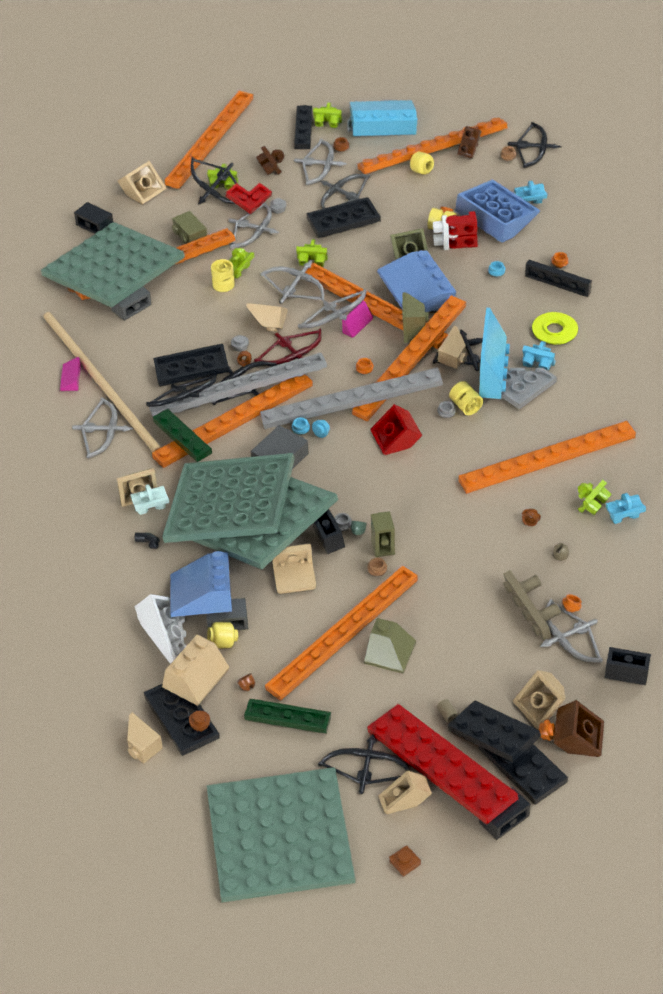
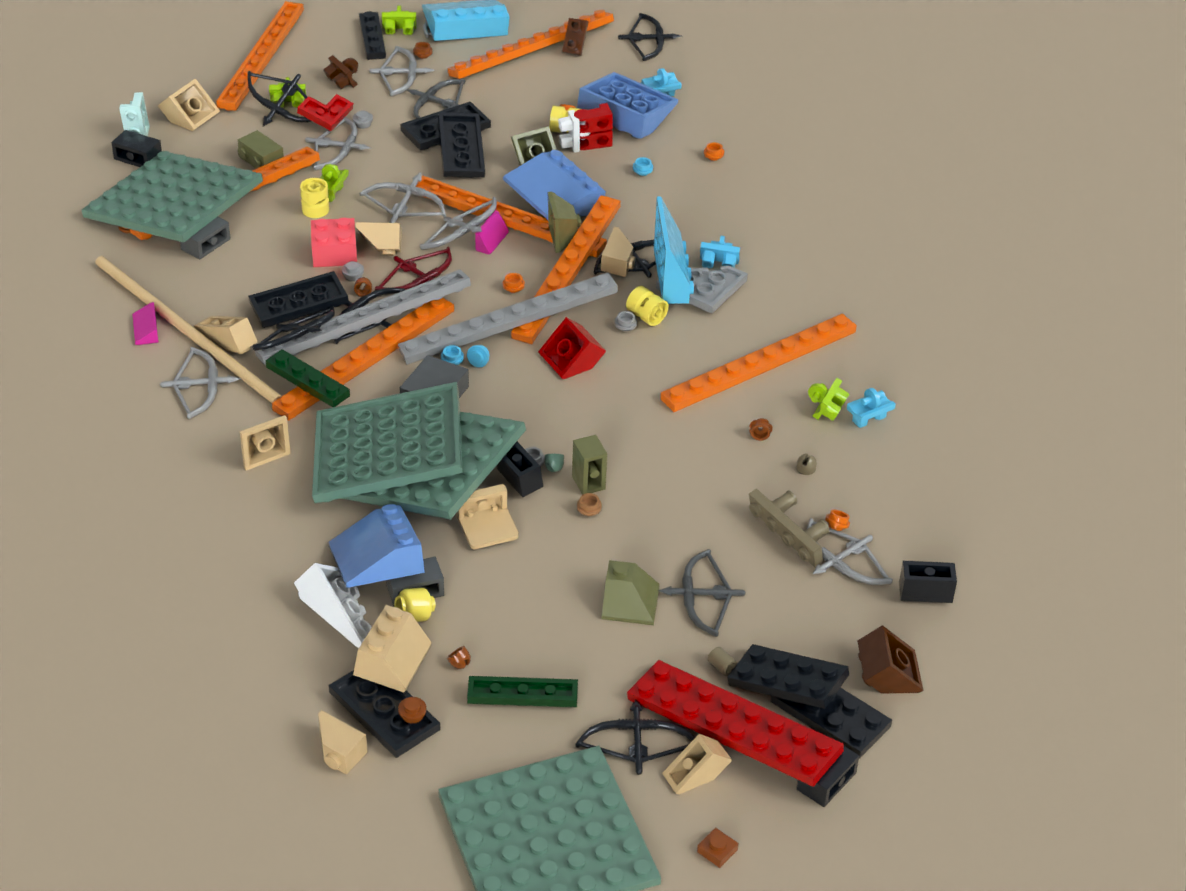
camera: 15 degrees left, 5 degrees down
(97, 191) = (135, 115): none -> light aqua bracket
(131, 388) = (228, 332): none -> tan slope
(148, 537) = (289, 501): black arm -> none
(150, 498) = (281, 455): light aqua hips -> none
(229, 317) = (333, 242): none -> coral brick
(312, 252) = (415, 164): lime hips -> none
(341, 633) = (563, 587): orange plate -> none
(350, 237) = (461, 145): none -> black plate
(421, 163) = (524, 62): light yellow head -> none
(460, 652) = (718, 591): none -> dark grey piece
(508, 153) = (622, 46): medium nougat plate -> none
(540, 697) = (833, 631): tan slope -> none
(541, 332) = (744, 229): neon yellow piece -> none
(547, 730) = (854, 668): orange plate -> none
(558, 278) = (718, 170): black plate -> none

